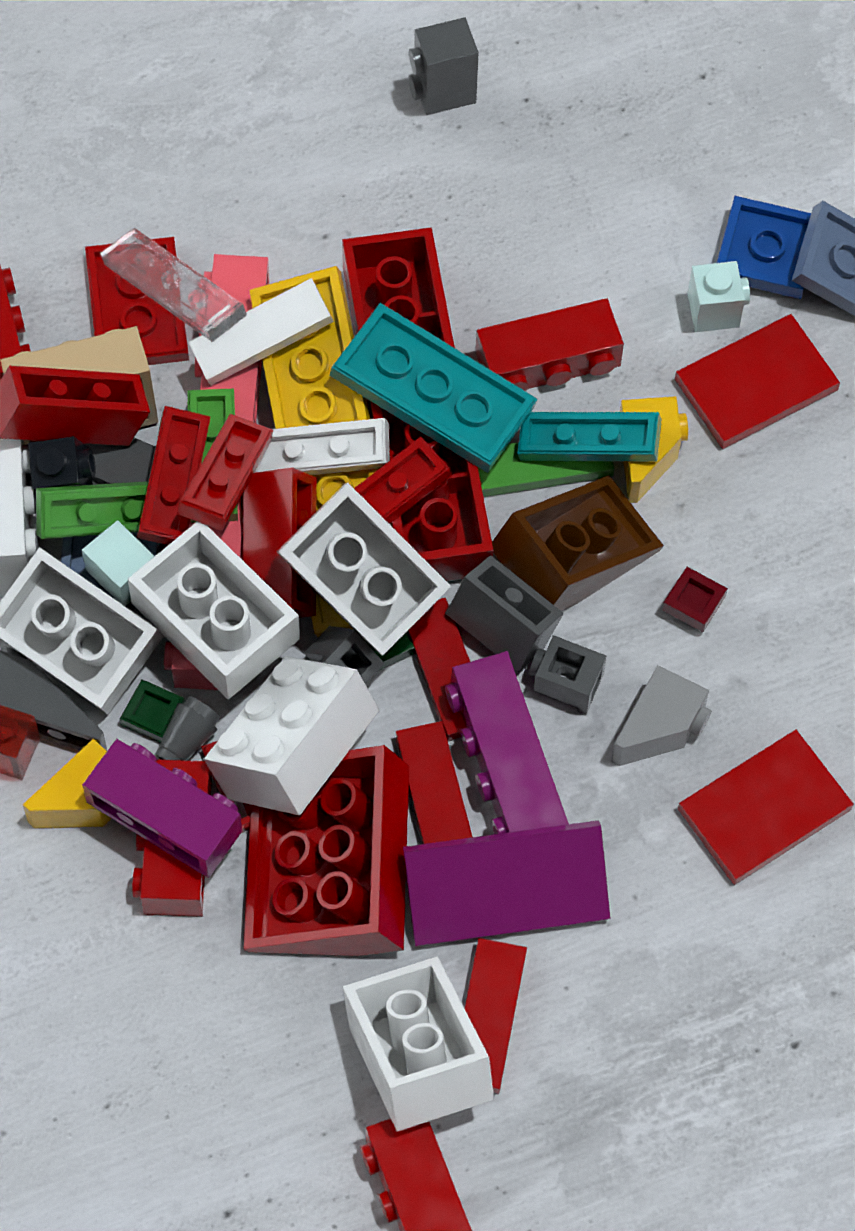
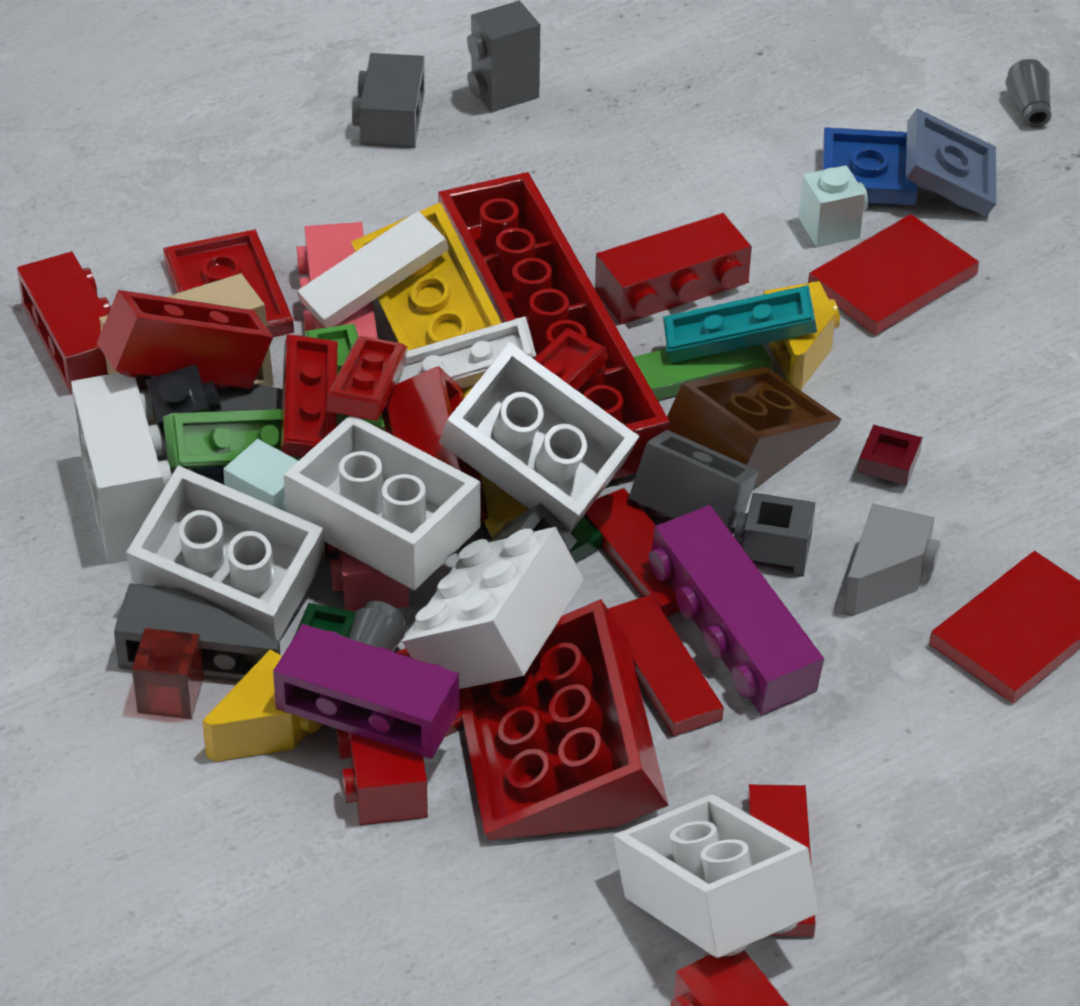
camera: 10 degrees left, 20 degrees down
(173, 284) = (269, 249): clear tile -> none
(329, 95) = (390, 100): none -> dark grey brick
(433, 387) = (568, 291): teal tile -> none
(507, 882) = (767, 722): magenta tile -> none

